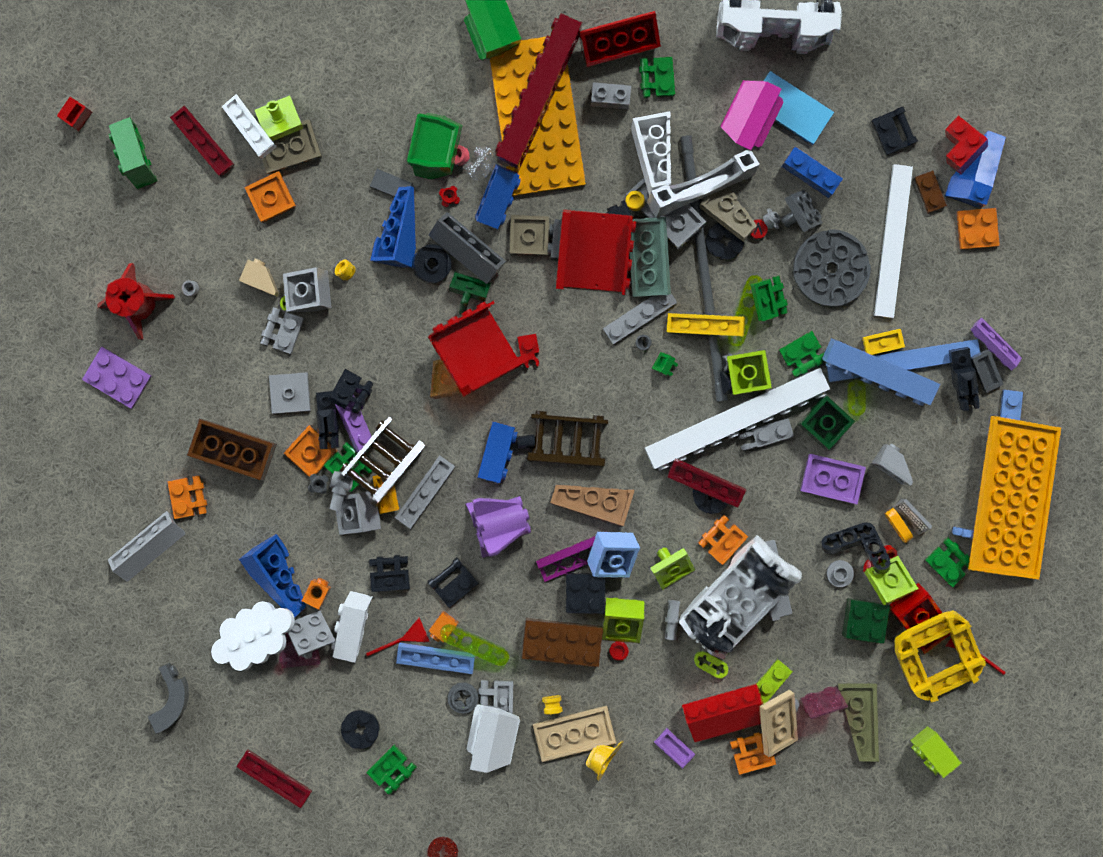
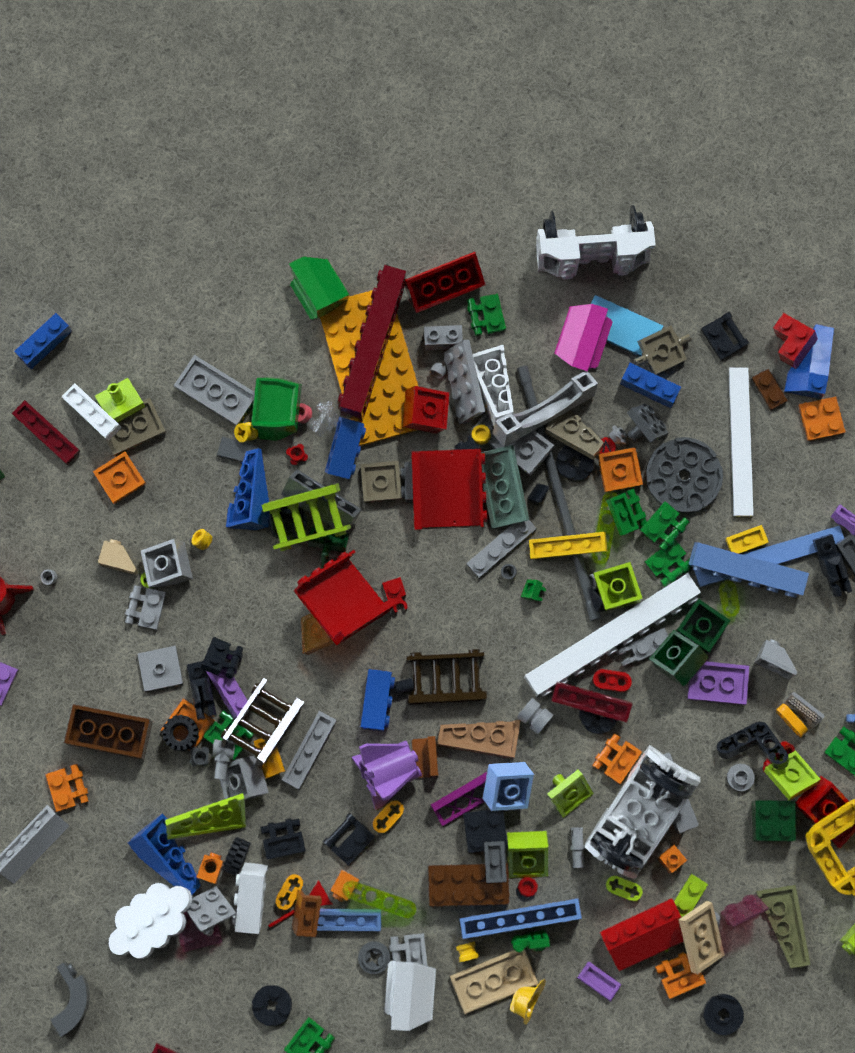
camera: 10 degrees left, 10 degrees down
(208, 46) = (43, 341): none -> blue brick
(313, 459) = (174, 722): none -> black tyre
(322, 546) = (216, 817): none -> lime wing
(342, 586) = (236, 856): none -> black tyre
(375, 120) = (215, 390): none -> light grey plate
(393, 628) = (285, 888): none -> light orange beam
(399, 167) = (245, 432): none -> yellow wheel
(402, 650) = (306, 914): none -> dark orange panel
(456, 244) = (310, 497): none -> lime fence
(497, 569) = (391, 820): none -> light orange beam
(537, 510) = (427, 756): none -> dark orange panel
(583, 168) = (425, 409): none -> red container
(590, 627) = (495, 862): none -> dark grey plate
(602, 127) = (437, 367): none -> light grey hinge
(607, 681) = (520, 918): none -> medium blue brick
(616, 702) = (534, 940): none -> green plate
(625, 144) = (464, 382): none -> light grey plate
(649, 488) = (535, 716): none -> light grey wheel
(683, 267) = (538, 494): none -> black slope
(729, 462) = (612, 680): none -> red plate
(761, 643) = (672, 859): none -> orange brick
(768, 254) = (620, 469): none -> orange plate
(792, 805) = (730, 1023): none -> black plate
(798, 451) = (678, 658): none -> dark green brick
(799, 313) = (659, 522): none -> green plate
(829, 137) = (662, 350): none -> dark tan plate

